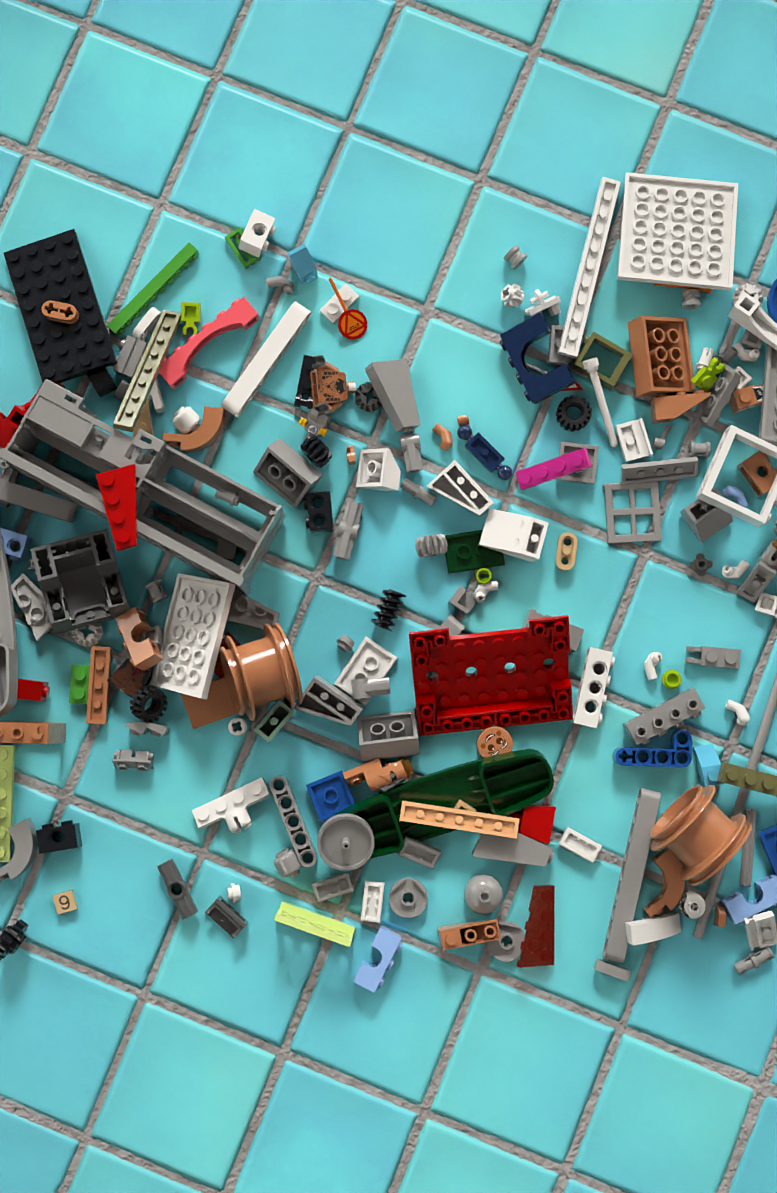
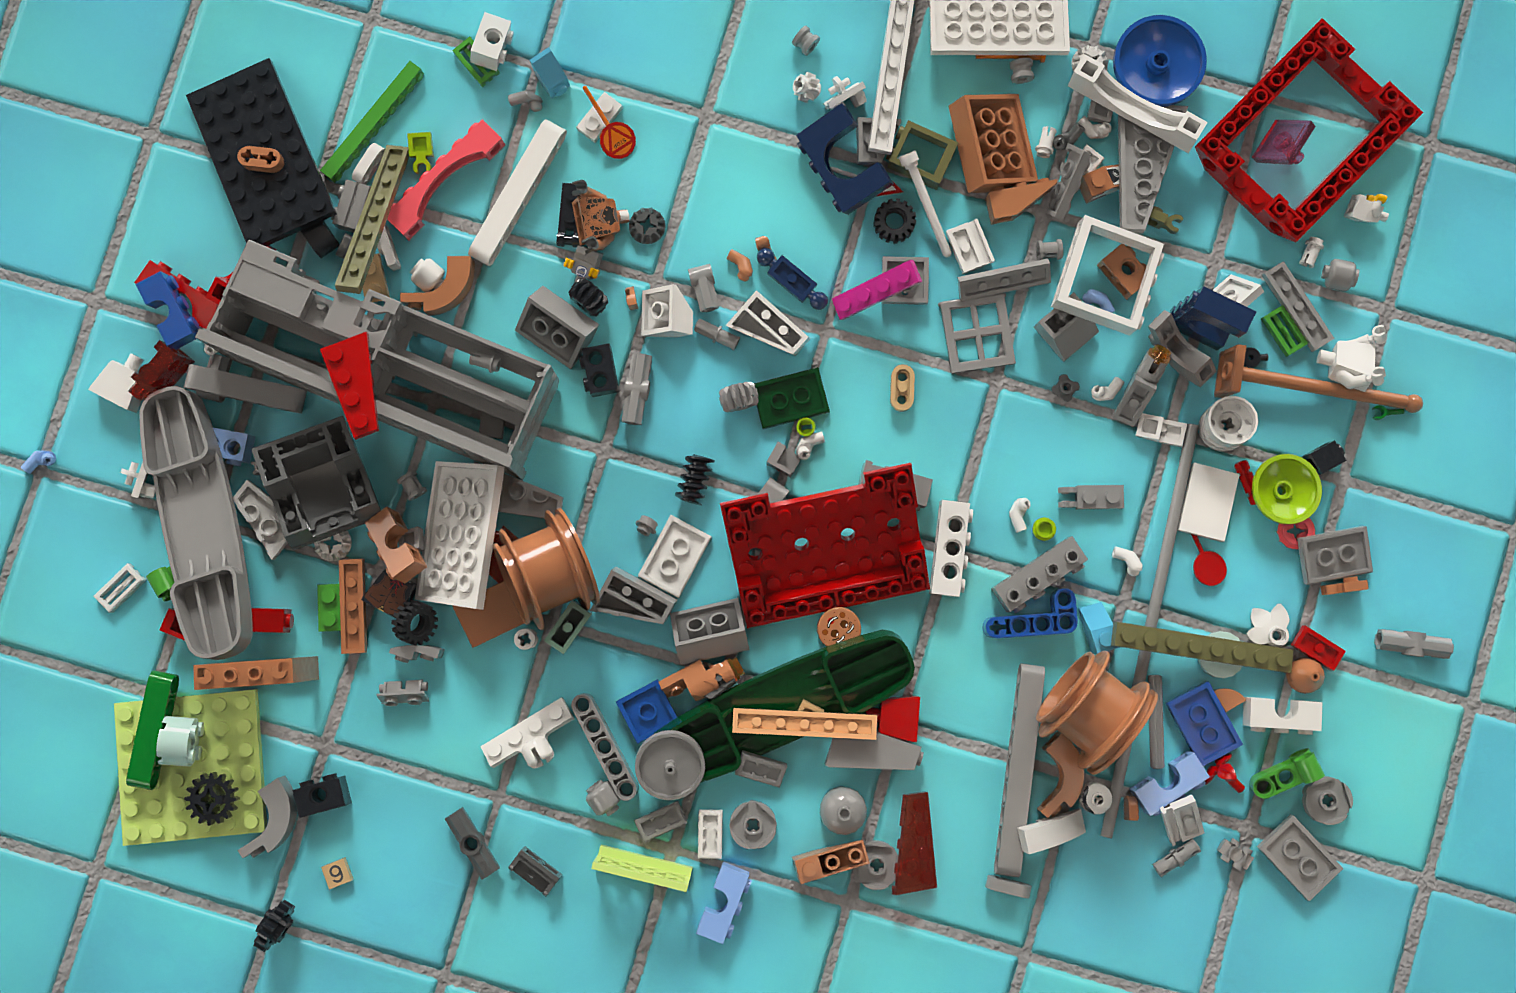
camera: 10 degrees left, 0 degrees up
(234, 893) = (541, 841): white plate -> none
(370, 687) = (677, 576): light grey piece -> none
(395, 391) = (677, 216): light grey slope -> none
(514, 534) = (837, 373): white slope -> none
(580, 844) = (953, 739): white plate -> none
(658, 443) = (1001, 246): light grey hand -> none
(706, 376) = (1049, 161): lime plate -> none

